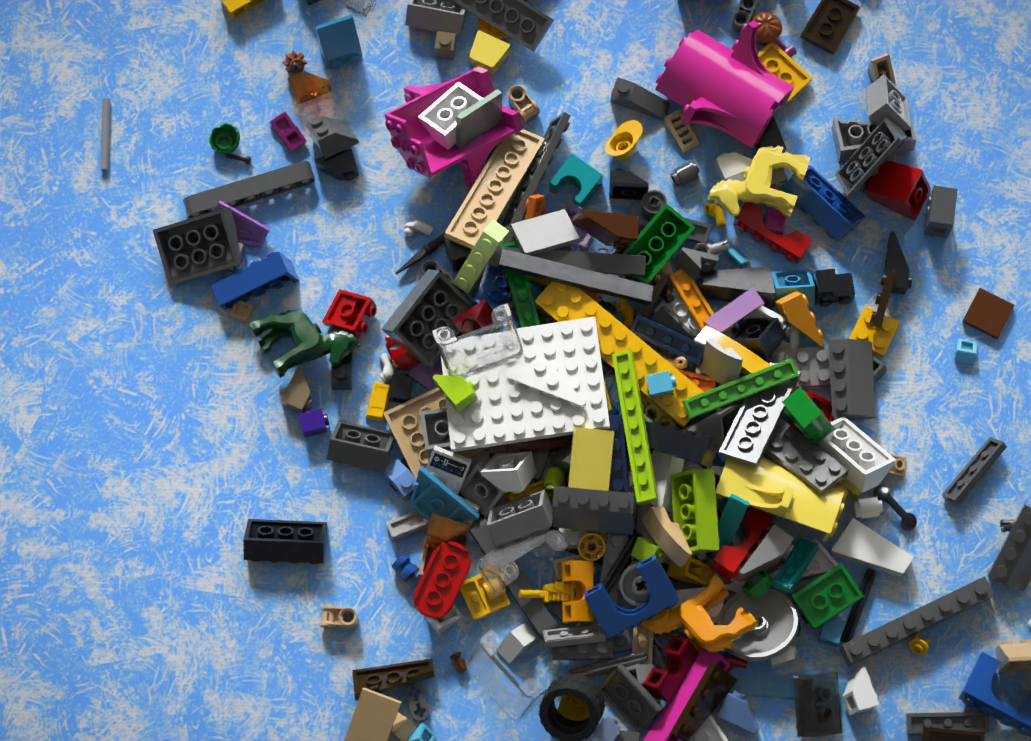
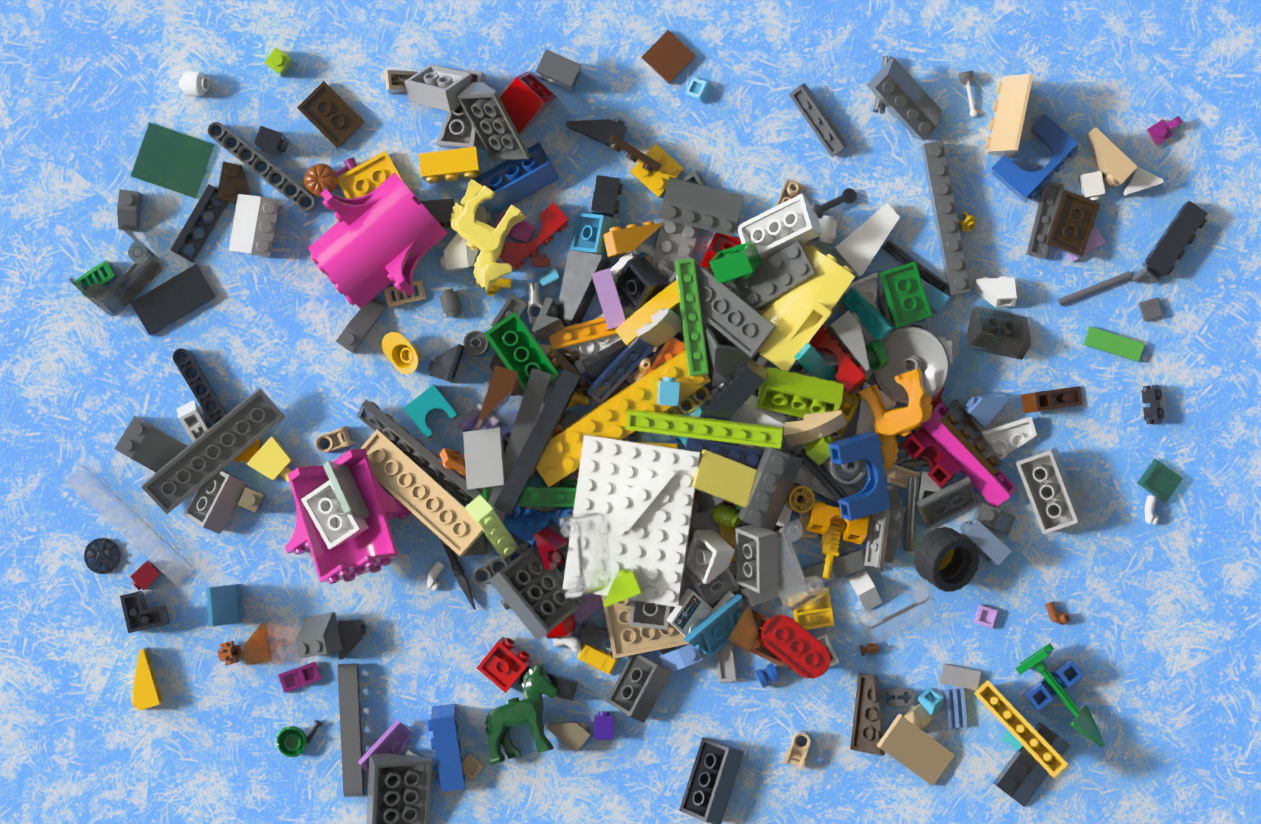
camera: 75 degrees left, 15 degrees up
(751, 245) = (541, 261): none -> clear red plate
(817, 136) = (449, 164): none -> yellow brick

